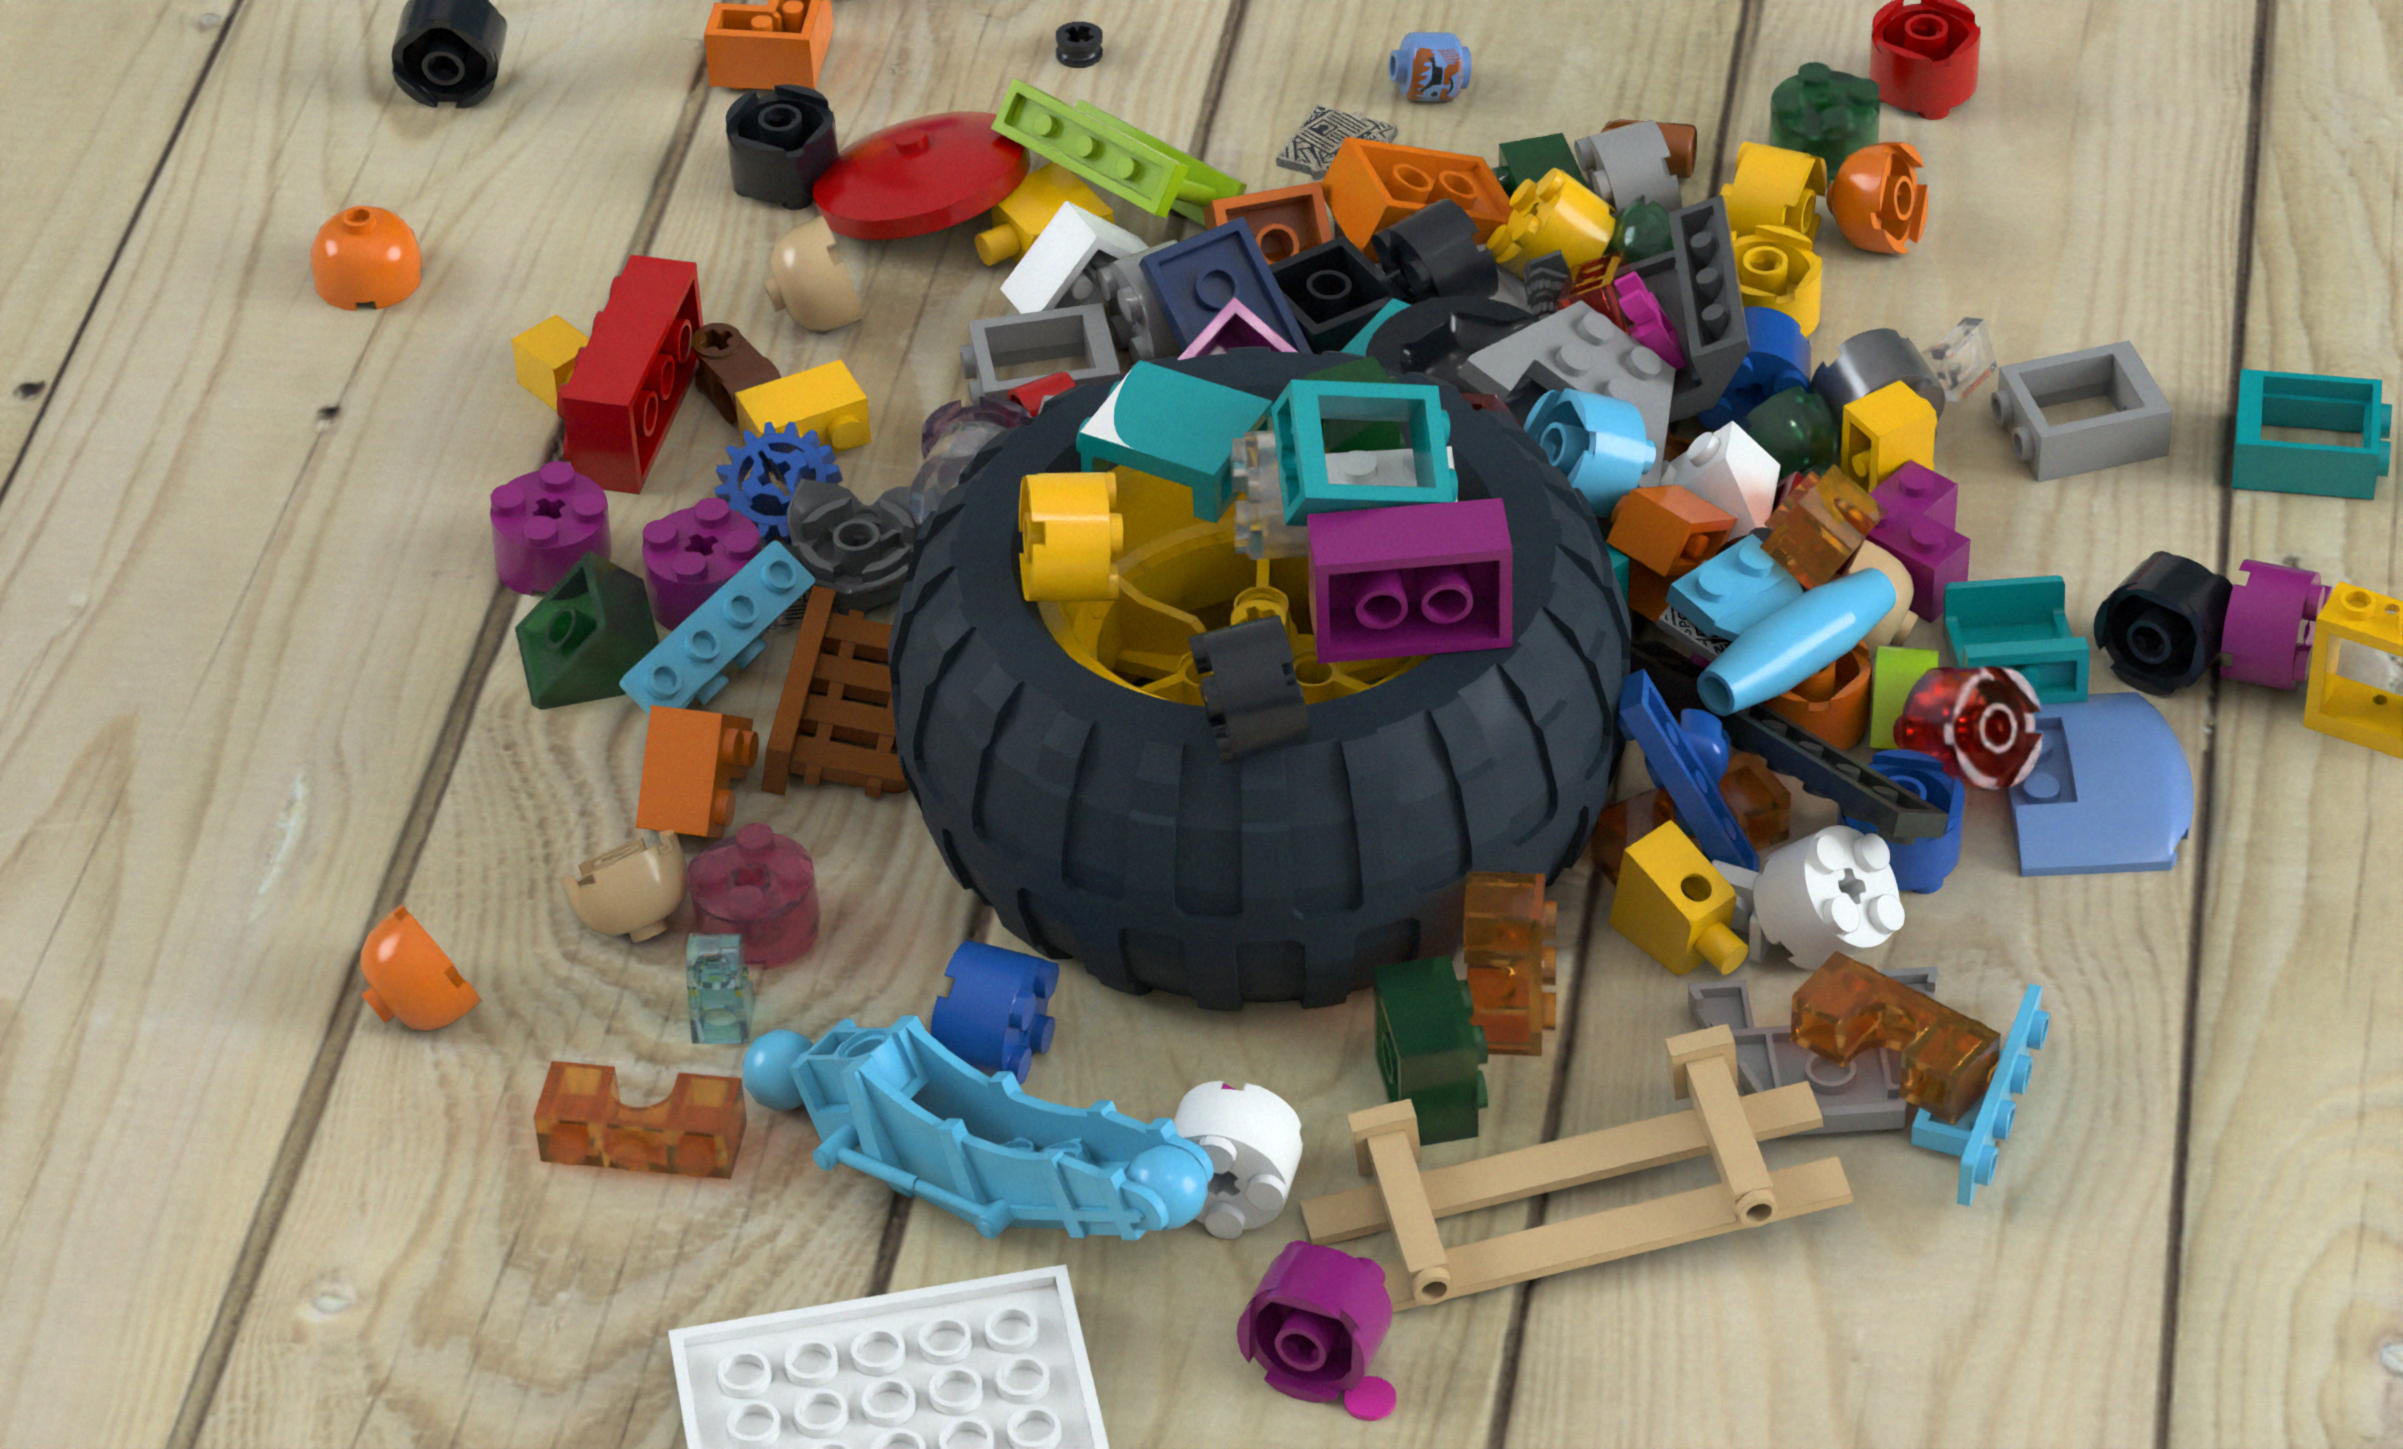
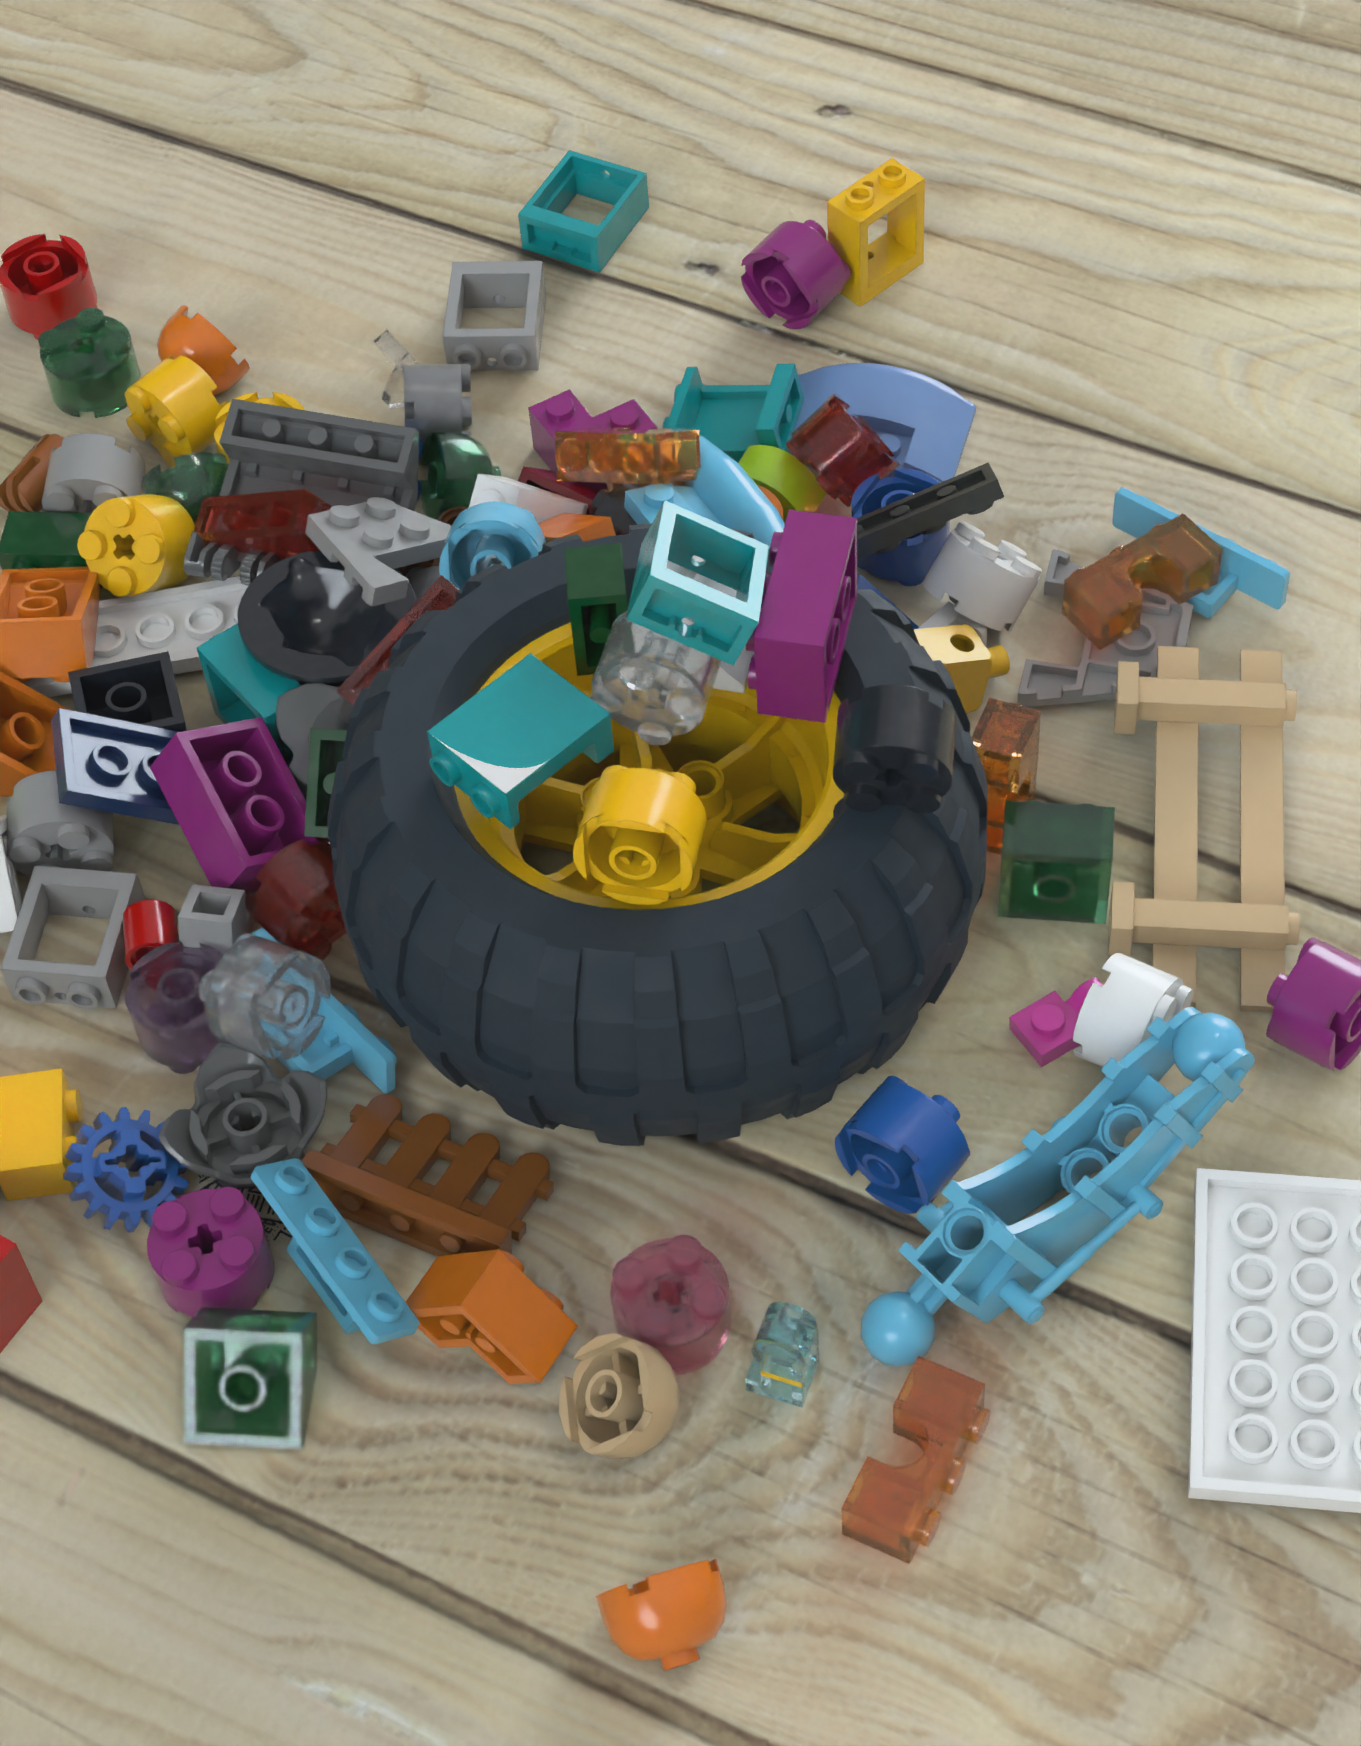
camera: 70 degrees left, 10 degrees up
(546, 526) = (88, 1374): magenta brick -> none
(1435, 256) = (149, 614): black brick -> none
(1652, 323) = (337, 488): dark pink plate -> none
(1885, 433) = (505, 419): yellow brick -> none
(2164, 623) = (761, 325): black brick -> none

